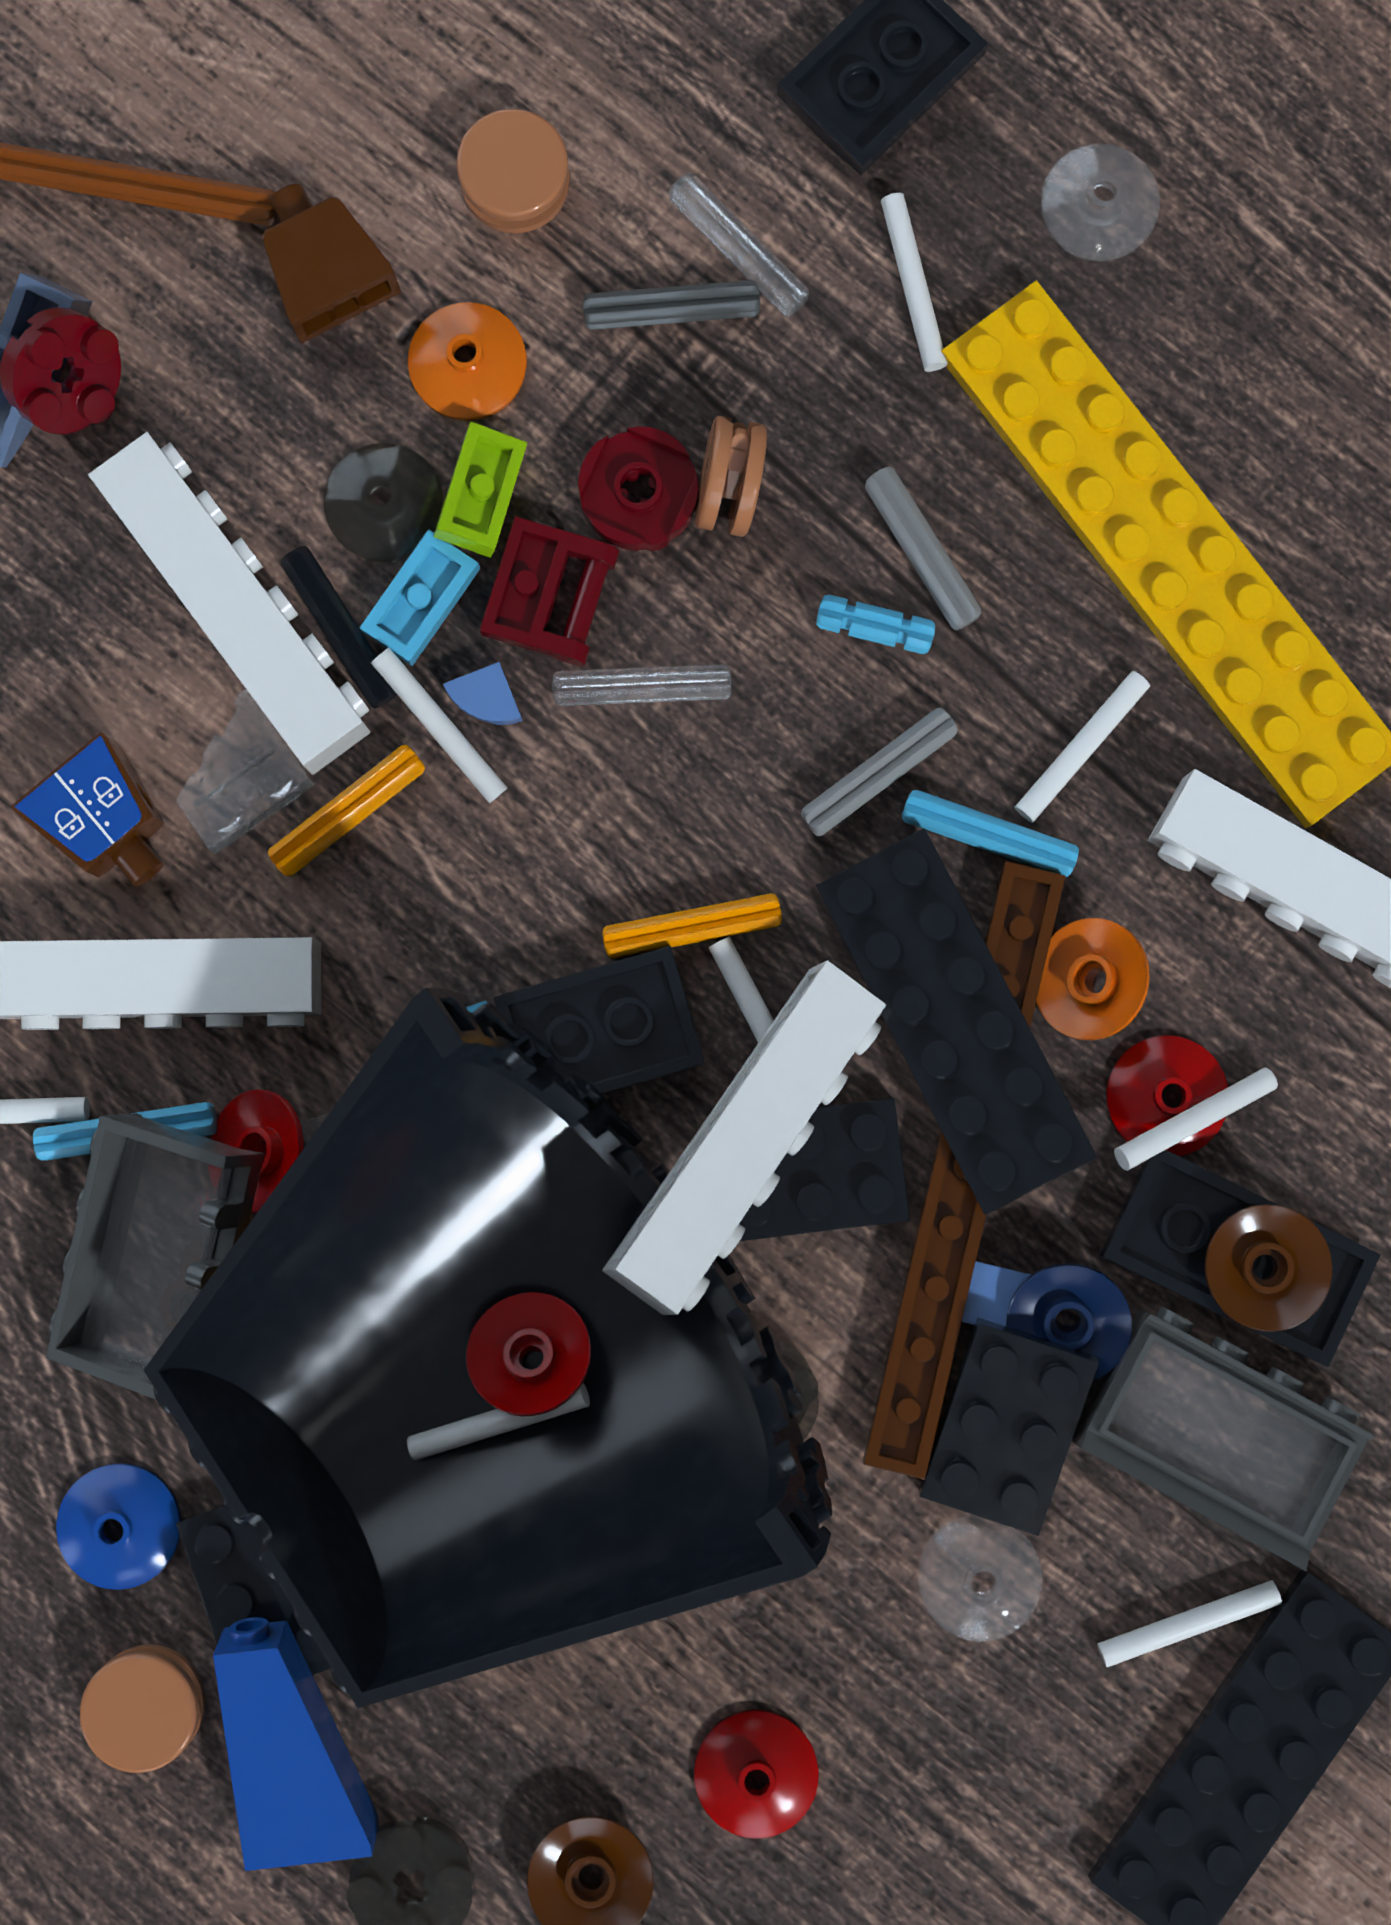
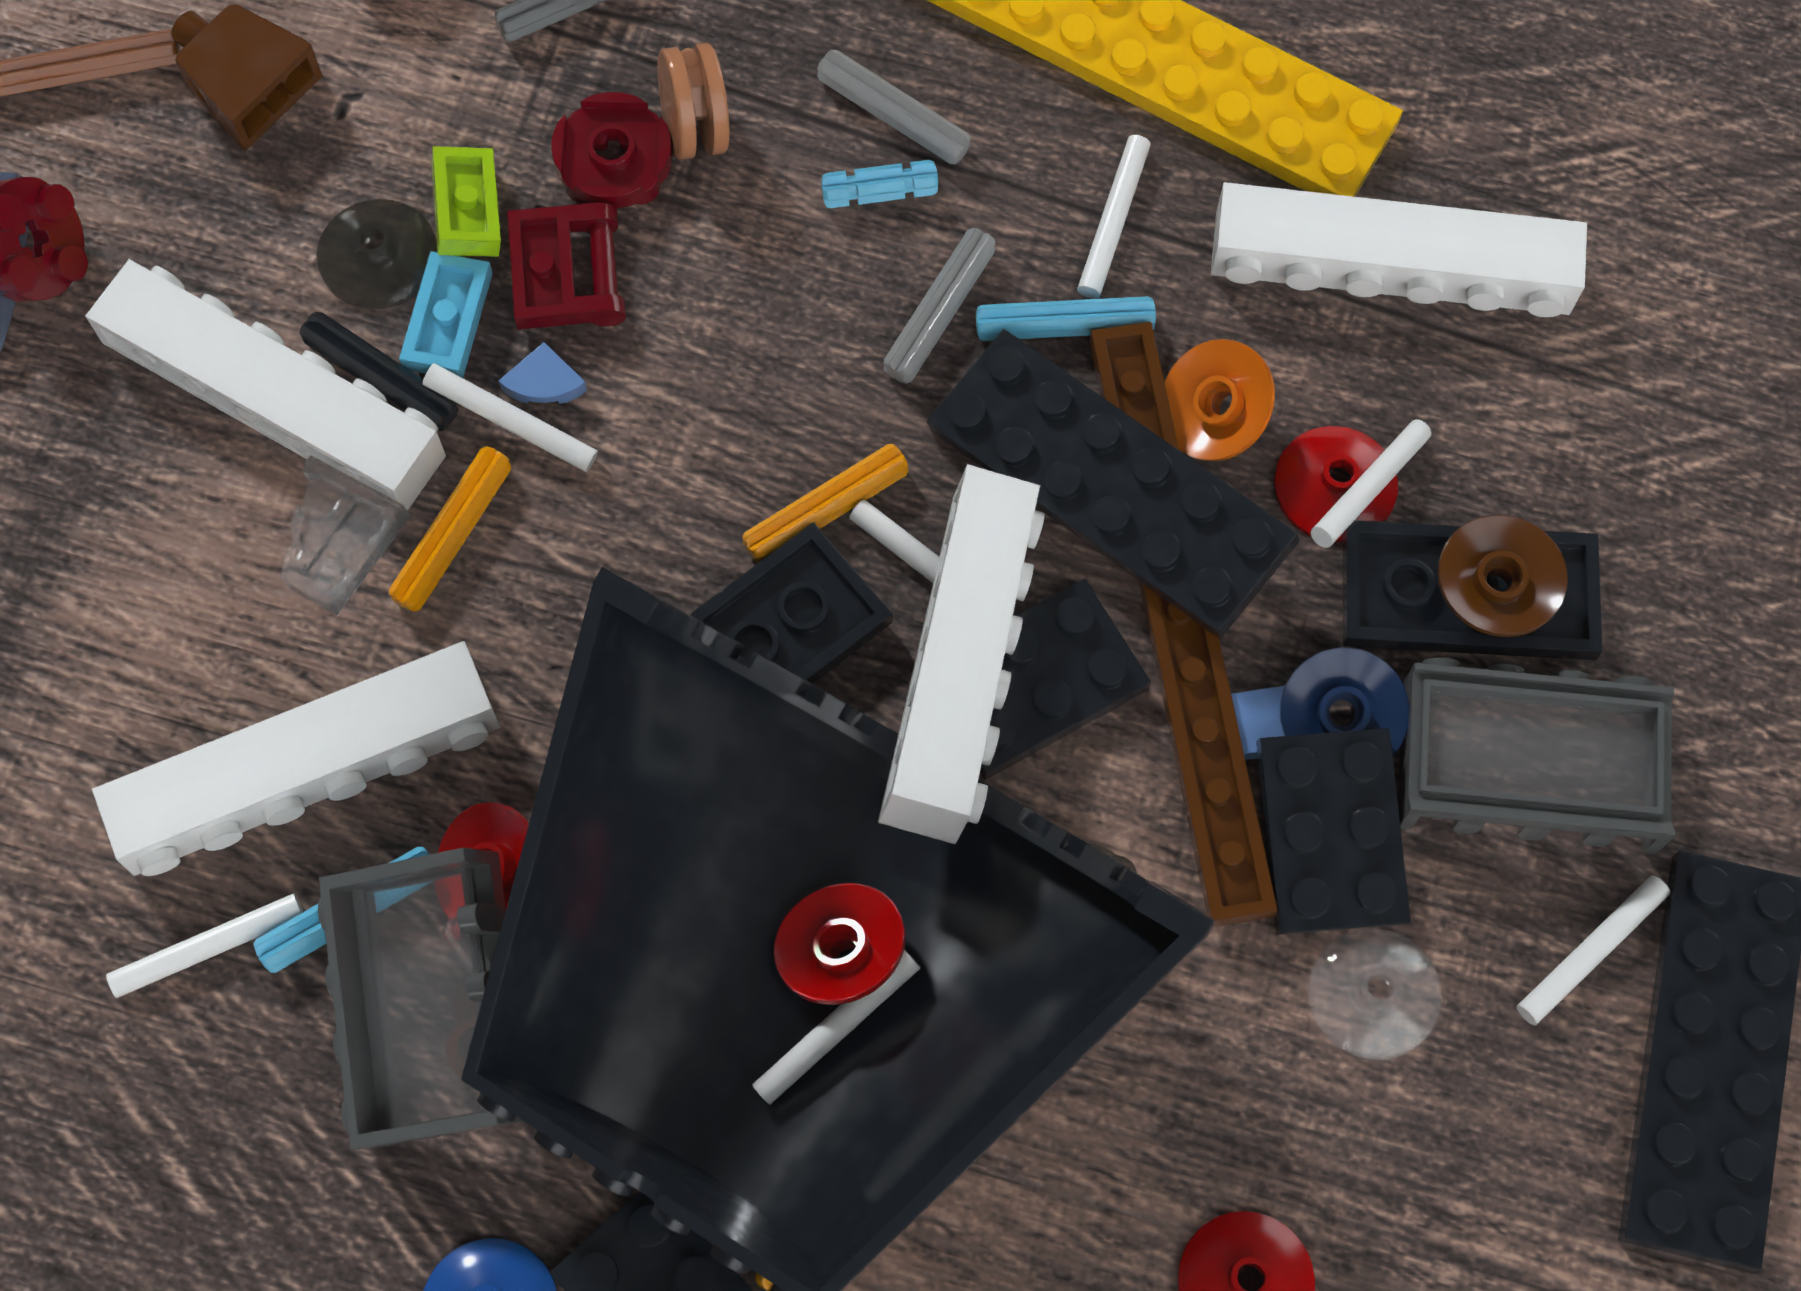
camera: 25 degrees left, 15 degrees down
(96, 812) = (204, 619): torso -> none
(474, 387) = (410, 128): orange dish -> none
(641, 685) = (686, 314): clear axle -> none

